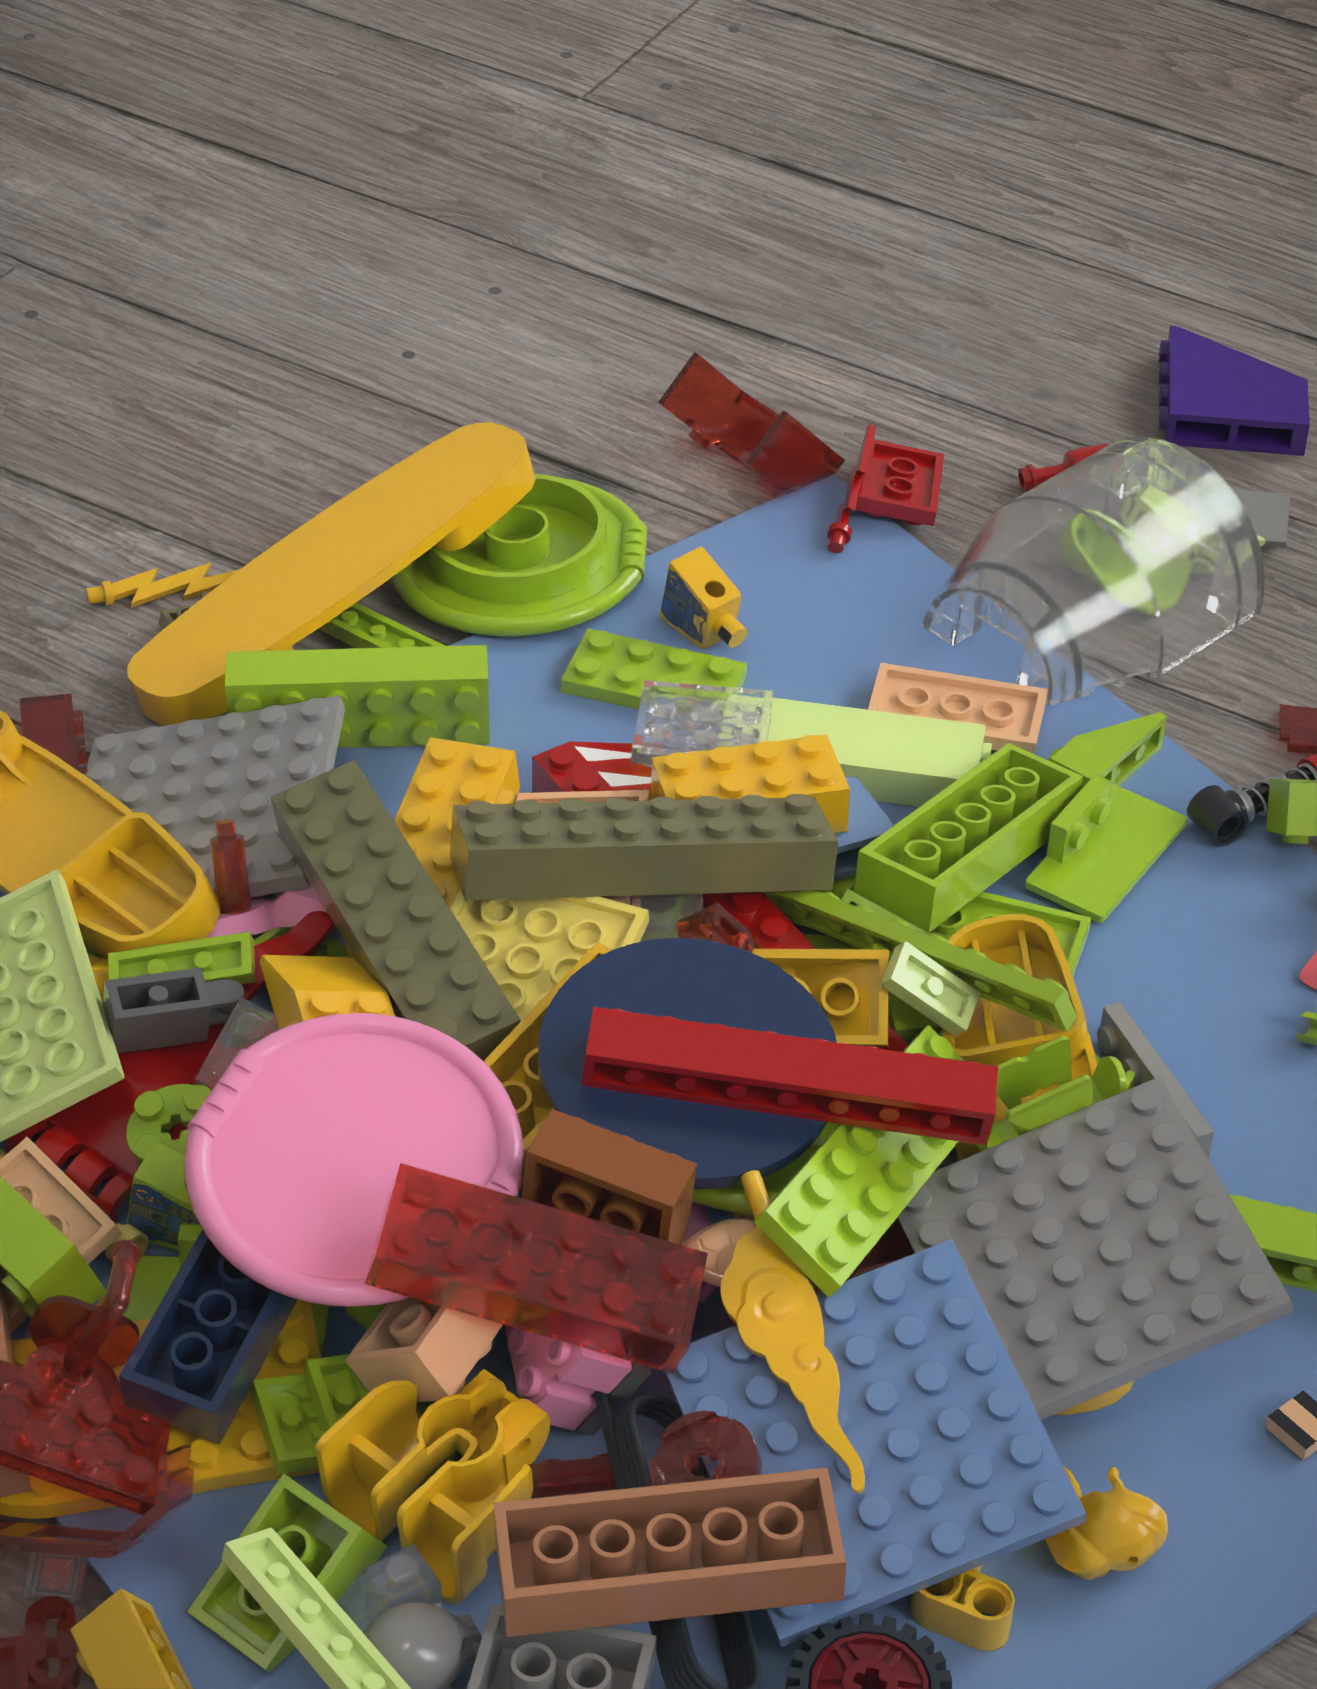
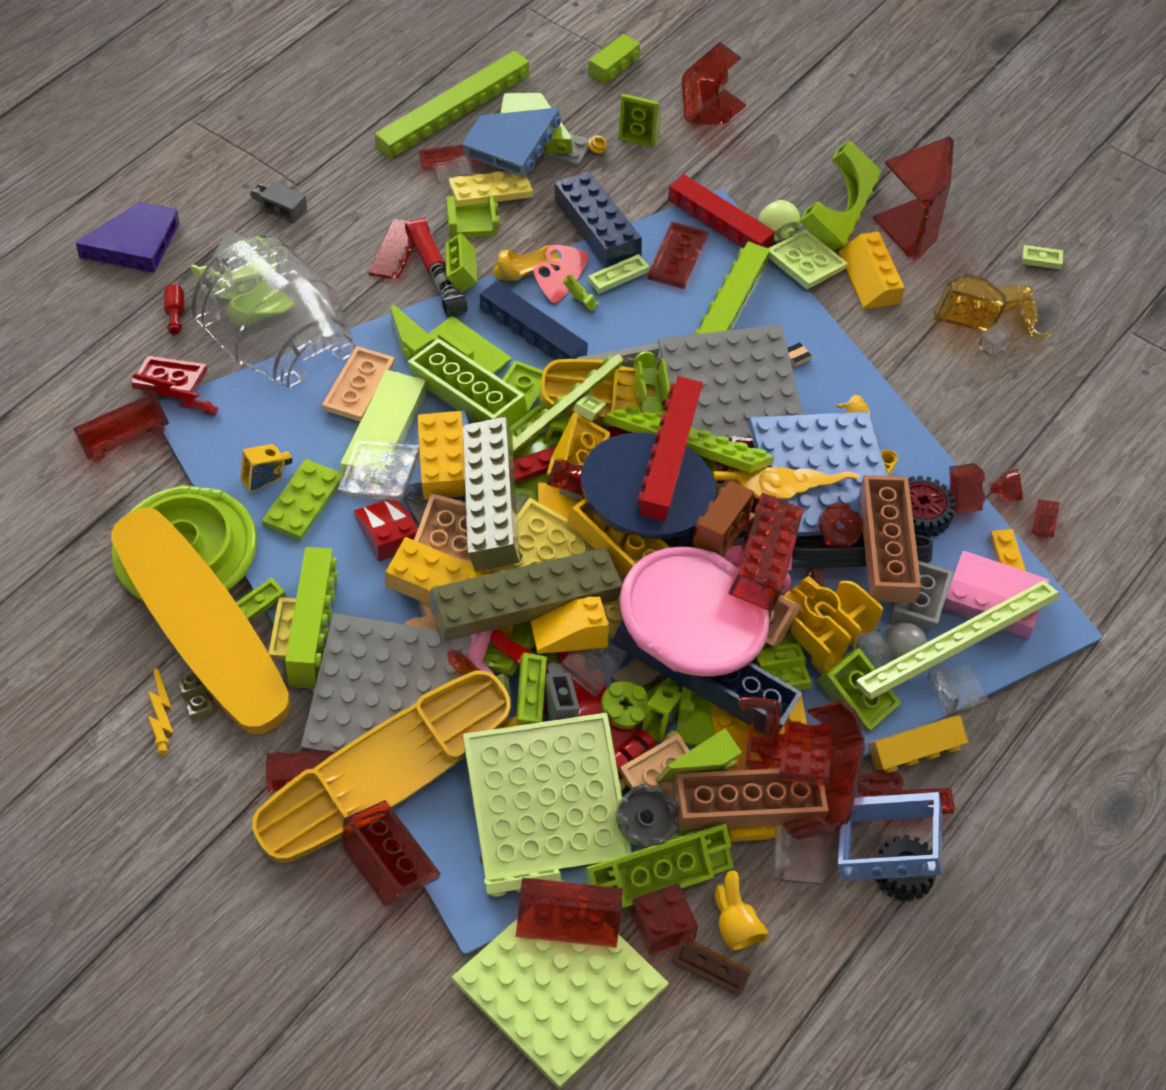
camera: 85 degrees left, 10 degrees up
(1205, 938) = (531, 323): none -> dark blue brick

